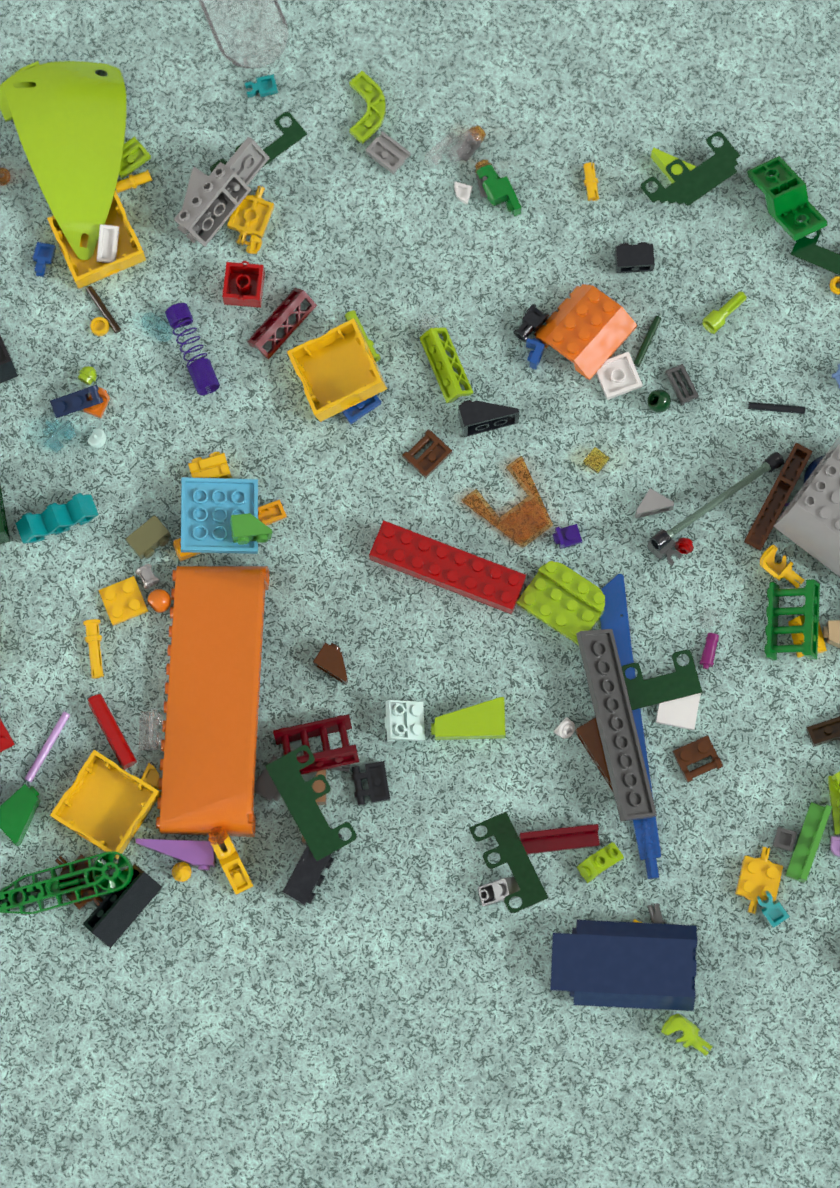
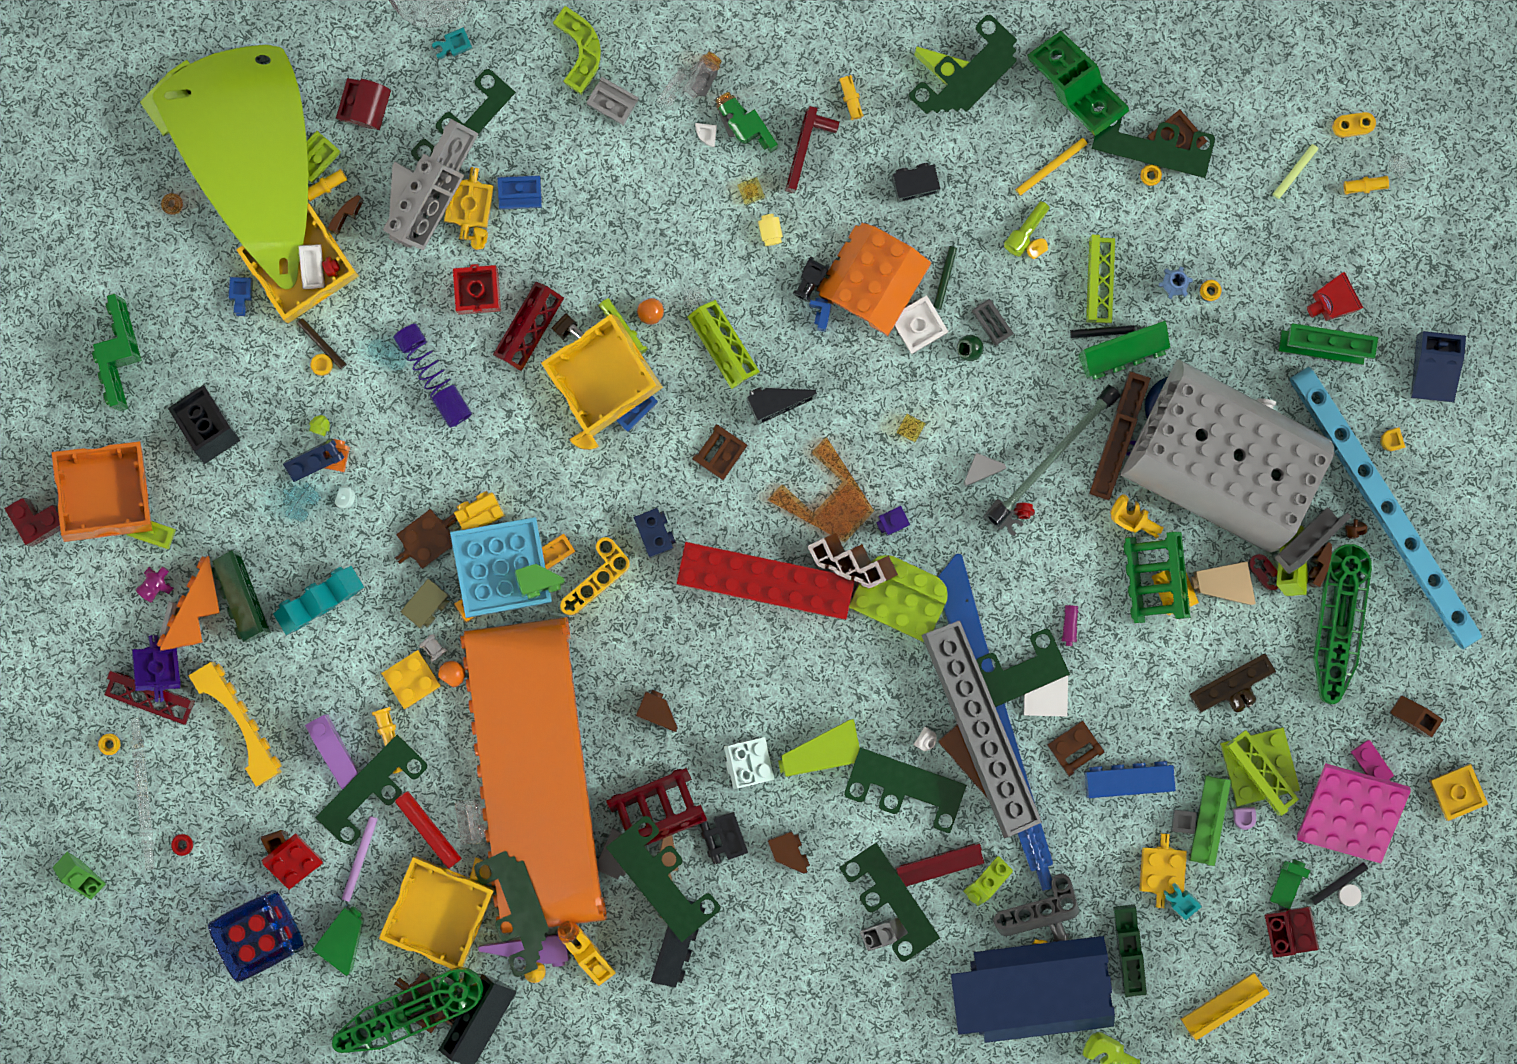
camera: 15 degrees left, 10 degrees up
(45, 654) = (332, 749): none -> medium lavender slope
(68, 680) = (368, 781): none -> dark green piece
(124, 246) = (331, 267): none -> red plate
(148, 204) = (349, 209): none -> reddish brown slope
(159, 483) = (426, 538): none -> reddish brown plate
(178, 121) = (363, 103): none -> dark red brick
(184, 814) = (524, 906): none -> dark green piece
(295, 213) = (519, 192): none -> blue plate
(296, 541) = (592, 580): none -> yellow beam
(311, 425) = (584, 441): none -> yellow tile
(313, 328) = (565, 326): none -> dark brown piece
(357, 510) = (654, 533): none -> dark blue brick
(388, 327) = (650, 311): none -> orange piece
(424, 804) = (786, 851): none -> reddish brown slope
(492, 244) = (751, 191): none -> clear yellow plate
(503, 277) = (770, 230): none -> light yellow brick
(525, 560) = (851, 564): none -> reddish brown brick
(543, 760) = (902, 780): none -> dark green piece
(553, 194) = (810, 120): none -> dark red piece
(615, 899) = (1036, 909): none -> dark grey beam
(718, 946) = (1130, 950): none -> dark green slope
(730, 328) = (1037, 248): none -> yellow piece
(741, 794) = (1129, 781): none -> blue brick
(753, 265) = (1051, 166): none -> yellow bar
(775, 360) = (1094, 276): none -> lime fence
(794, 423) = (1125, 350): none -> green slope
(796, 1010) = (1224, 1006): none -> yellow fence

